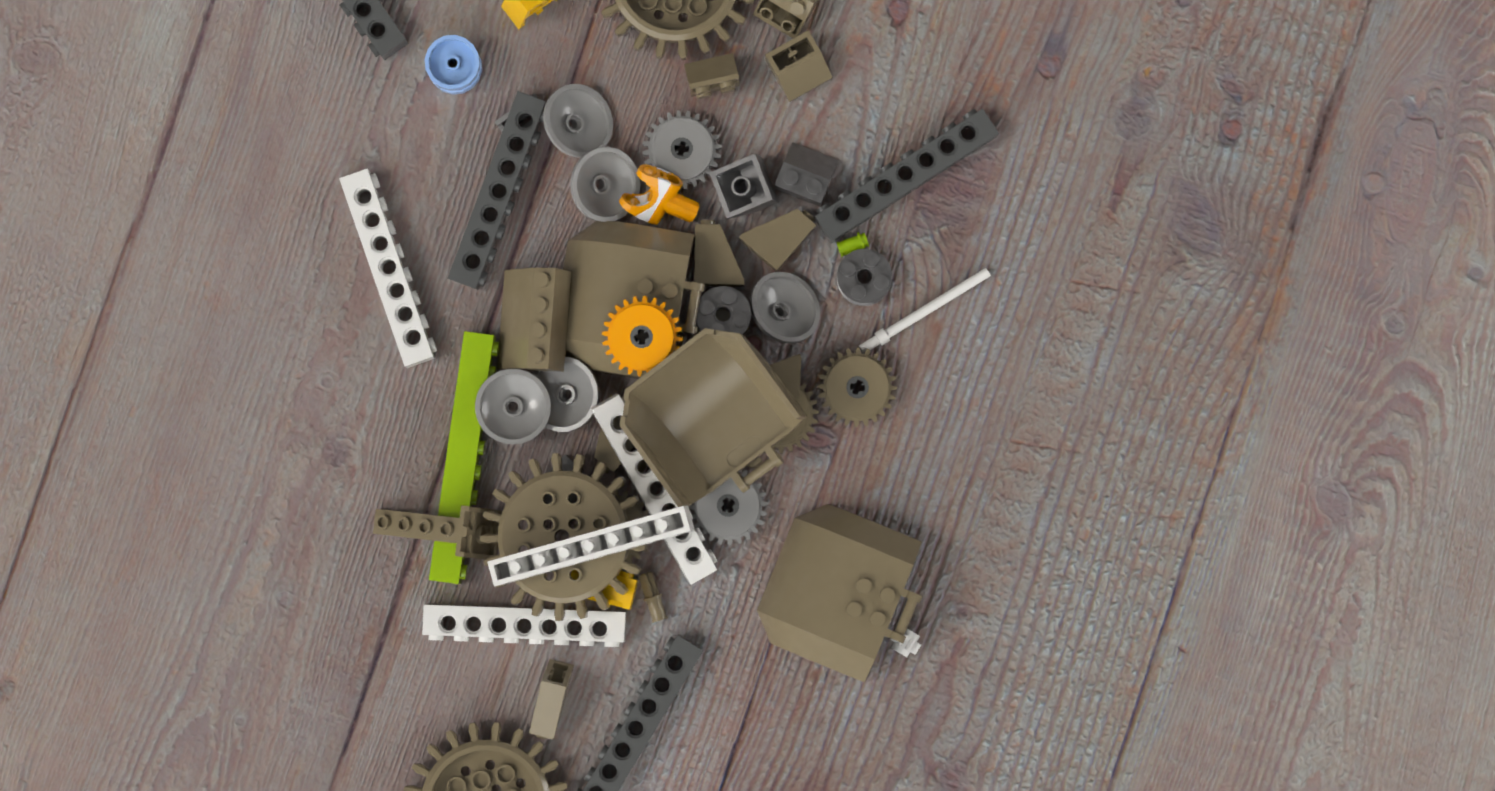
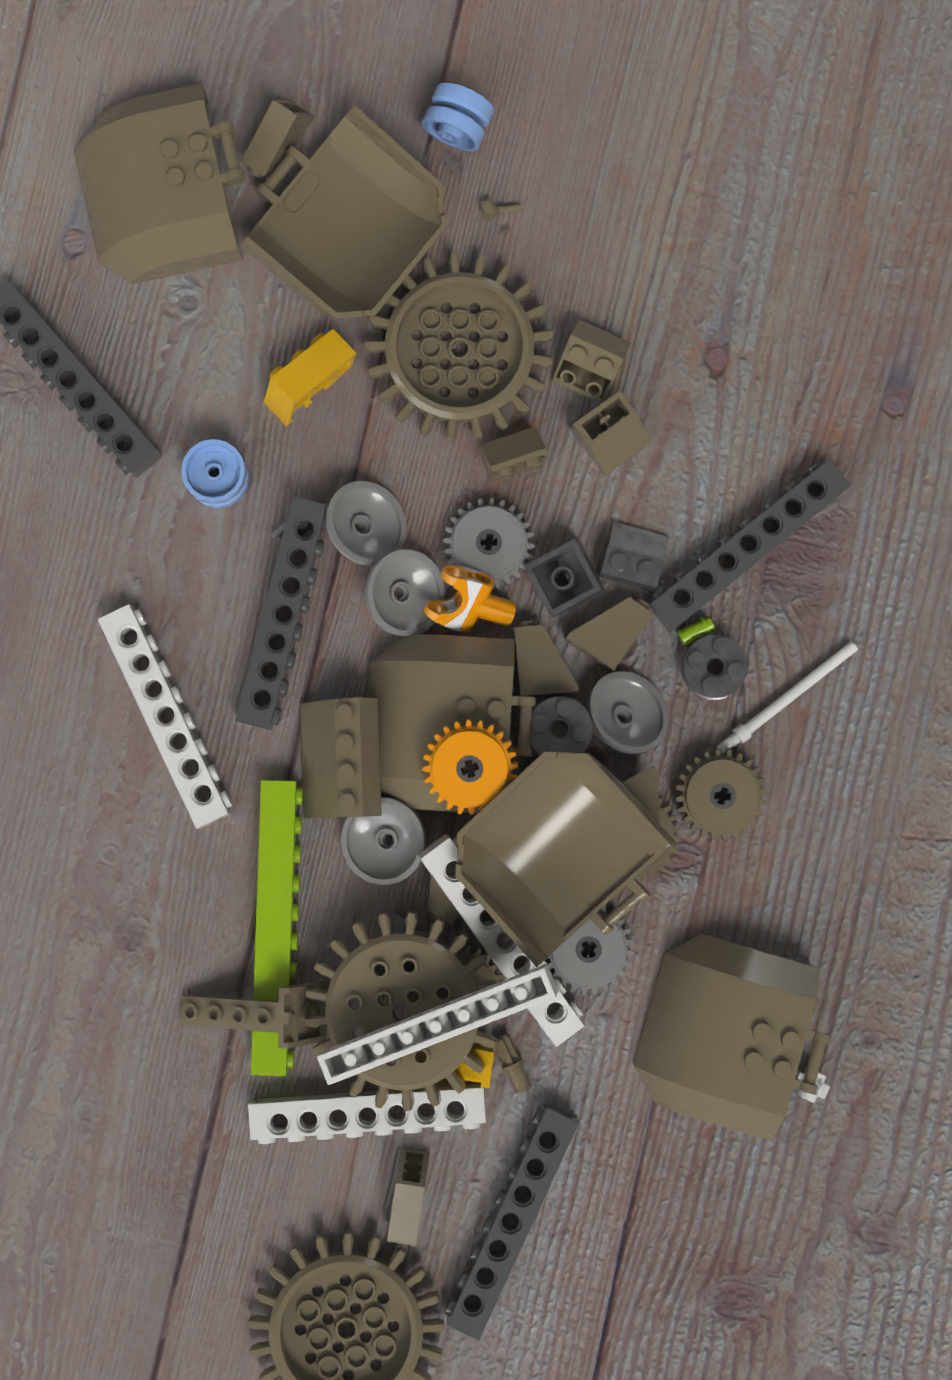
camera: 10 degrees left, 0 degrees up
(509, 387) = (326, 884): light grey dish -> none

